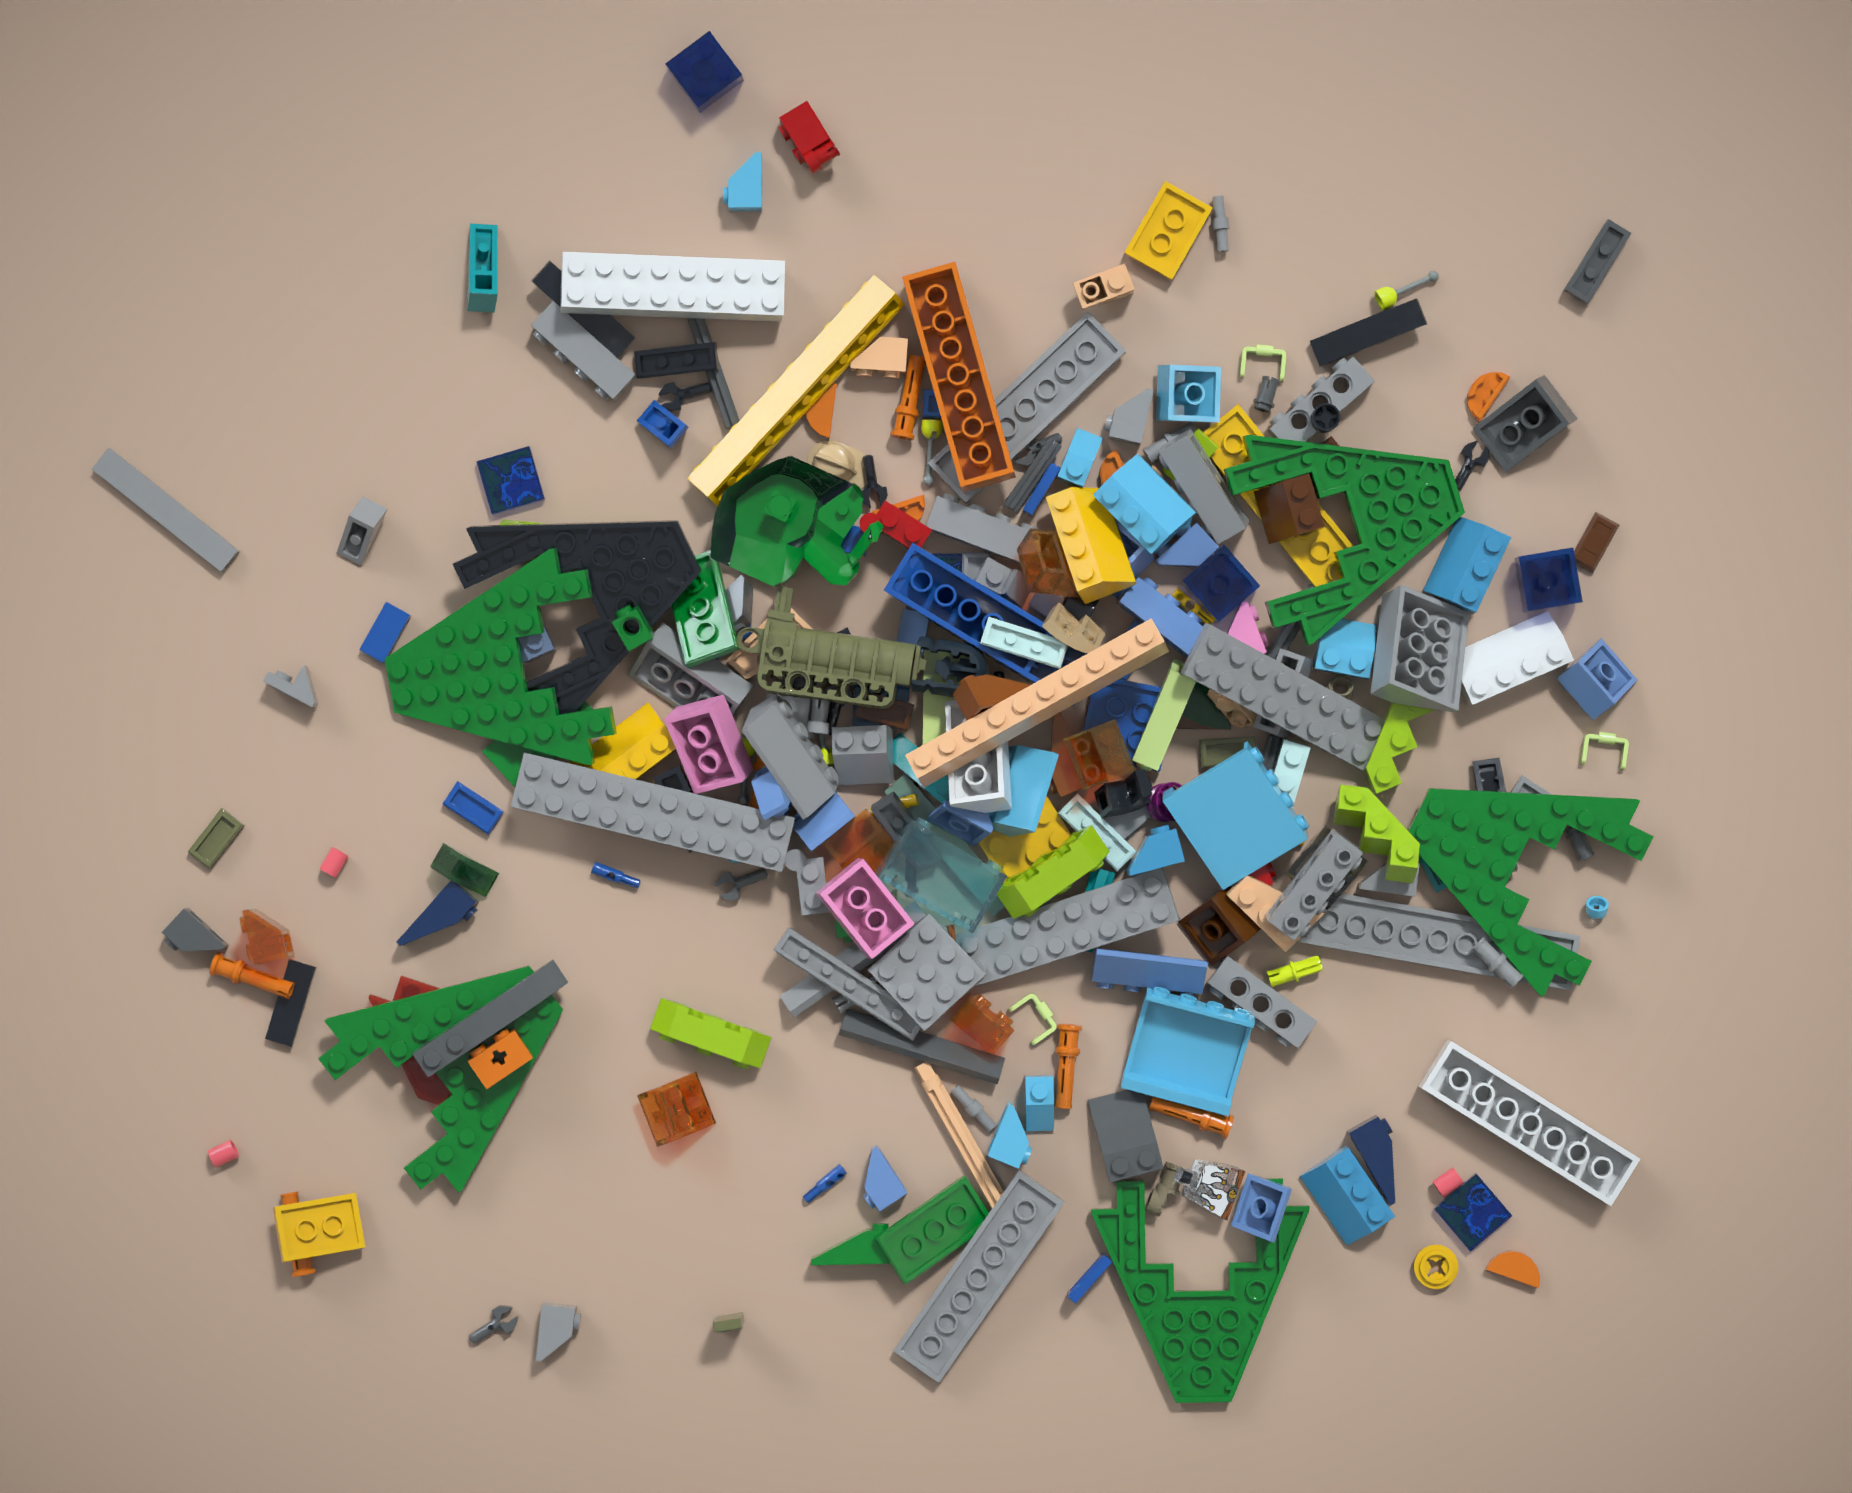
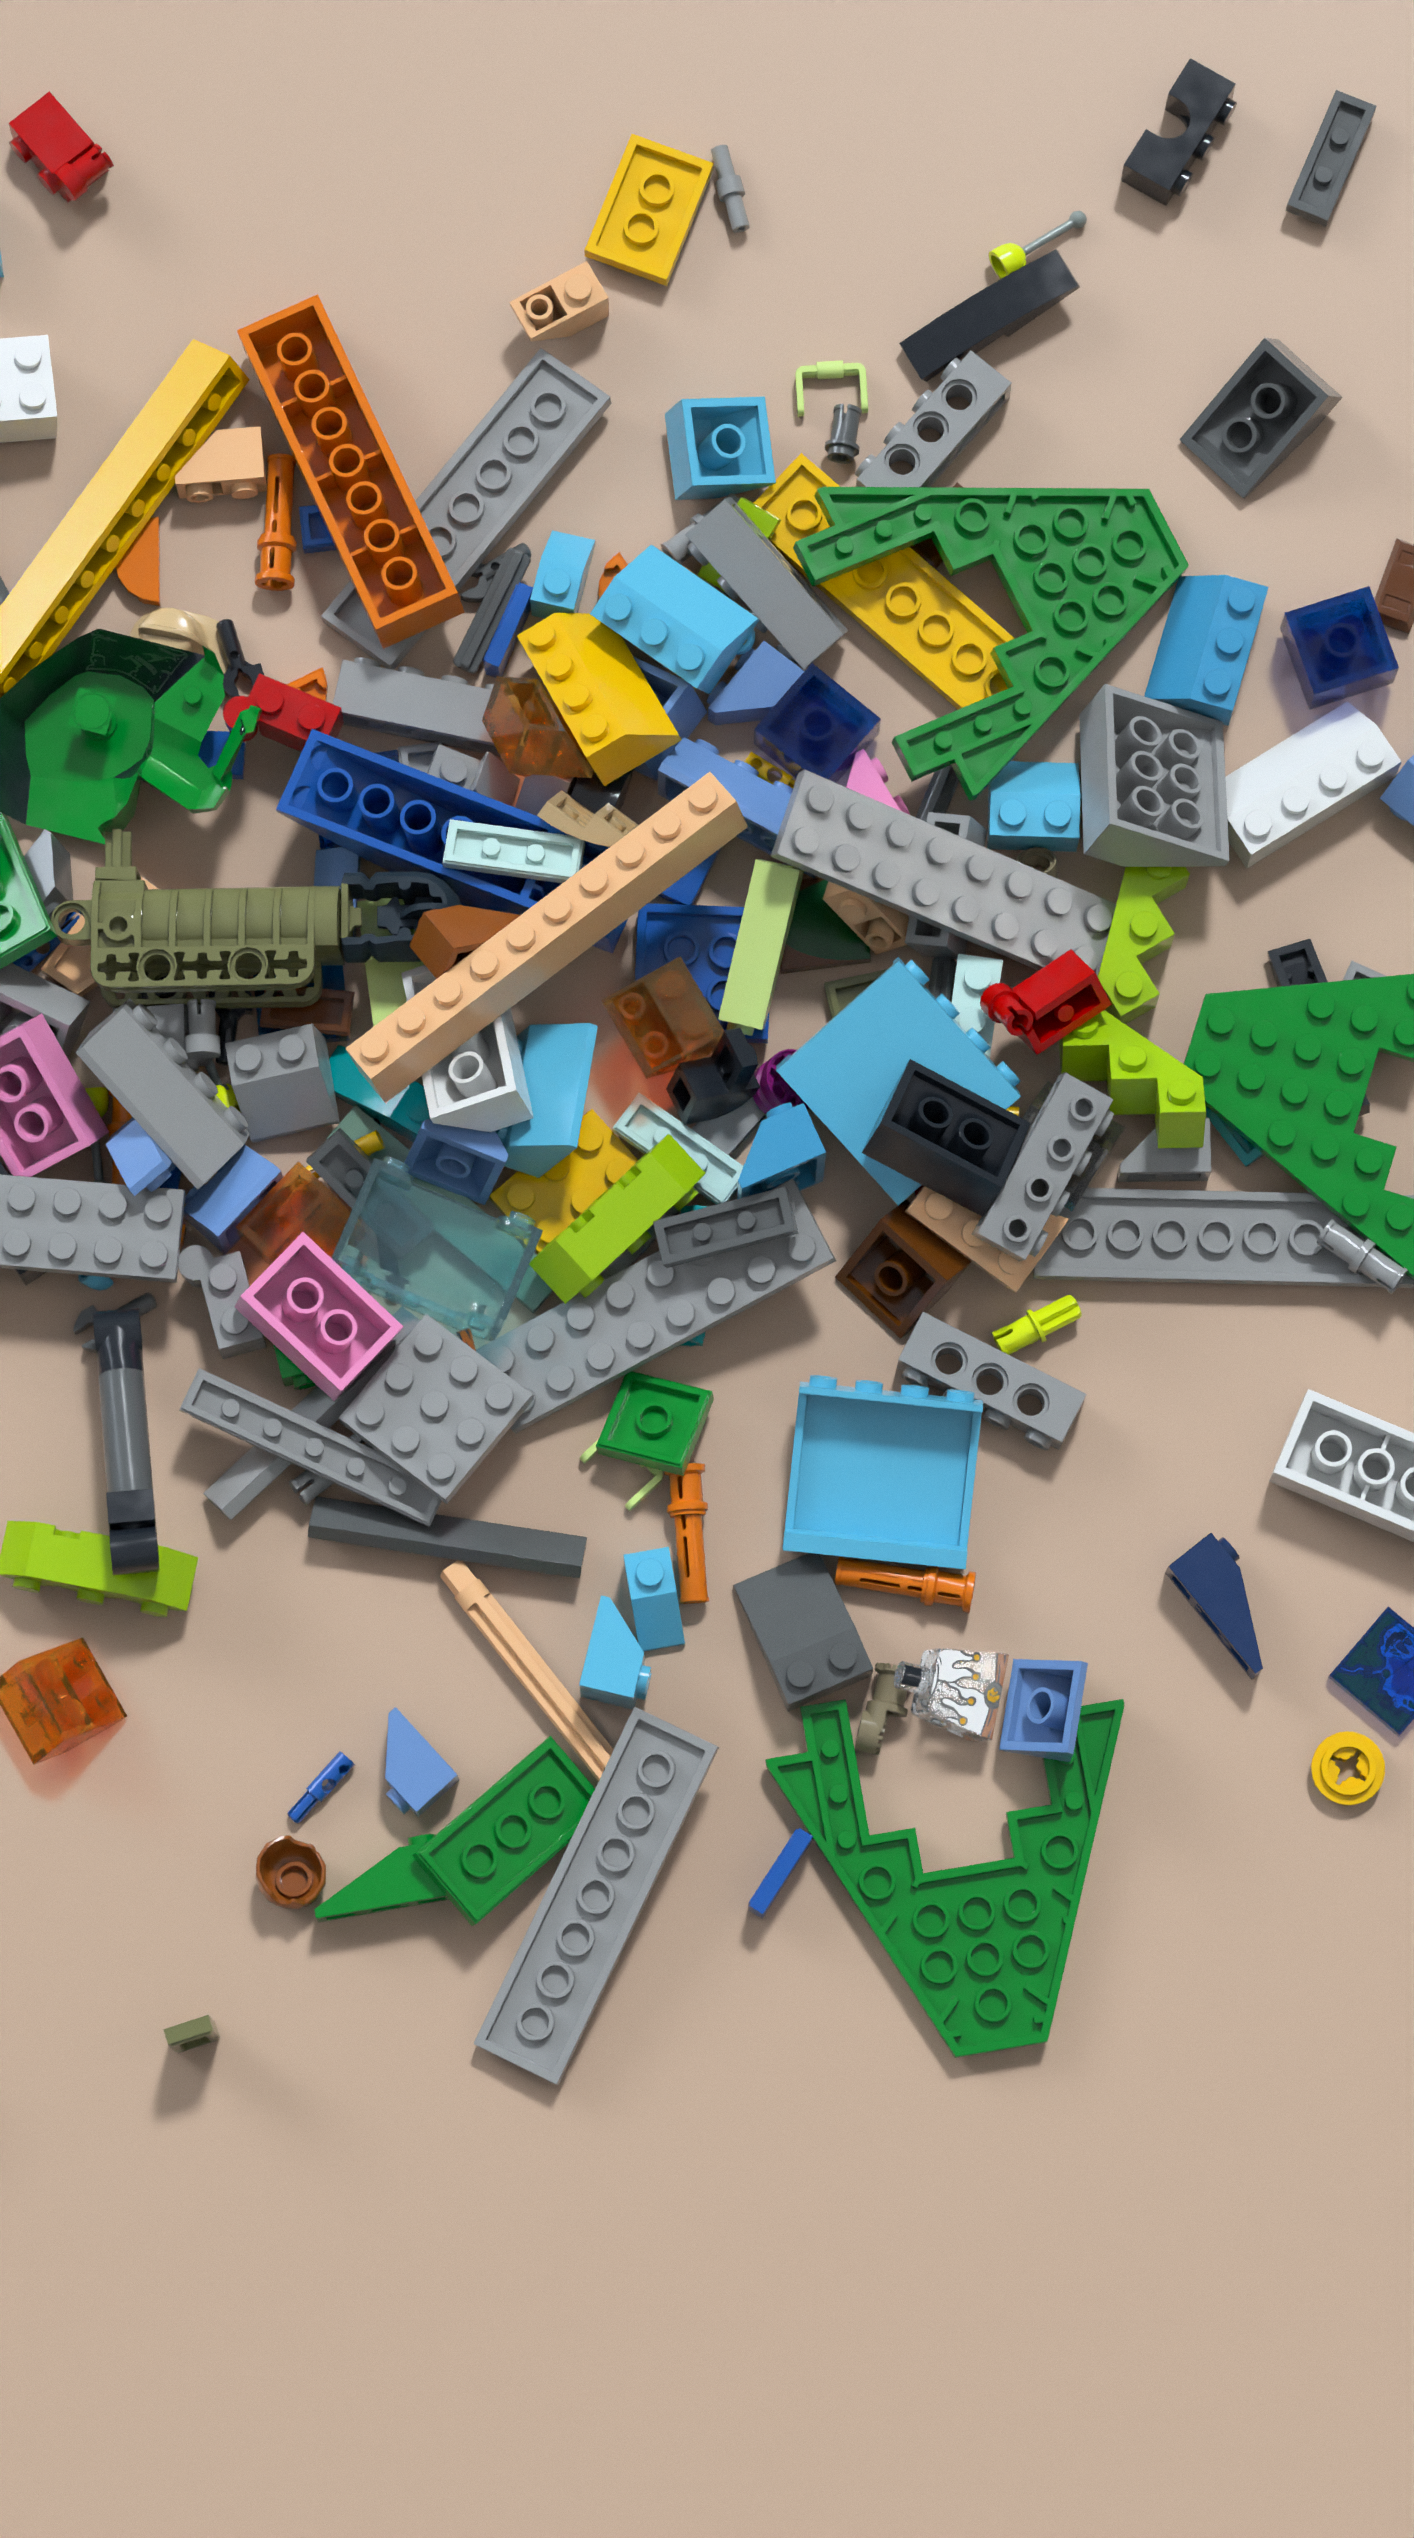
camera: 10 degrees left, 10 degrees down
(738, 965) = (126, 1442): none -> piece
(800, 1234) = (290, 1873): none -> dark orange hair
(930, 429) = (321, 565): hinge -> none
(973, 1108) = (547, 1626): light grey bar -> none
(982, 1023) = (540, 1479): clear orange slope -> none
(1056, 997) = (655, 1422): none -> green tile
(1064, 777) = (613, 1068): dark orange slope -> none
(1117, 893) = (725, 1227): none -> dark grey plate
(1130, 419) = (633, 502): light grey slope -> none
(1148, 970) = (784, 1352): medium blue slope -> none
(1259, 858) = (946, 1138): none -> black slope
(1289, 509) = (908, 596): reddish brown slope -> none
(1329, 416) = (941, 435): black wheel -> none
(1333, 780) = (1047, 1002): none -> red hinge
(1347, 1195) = (1183, 1673): dark azure slope -> none
(1448, 1182) = (1344, 1627): coral hinge -> none
(1469, 464) = (1184, 493): black bar -> none
(1484, 392) = (1188, 383): orange tile -> none
(1491, 251) = (1162, 164): none -> black arch

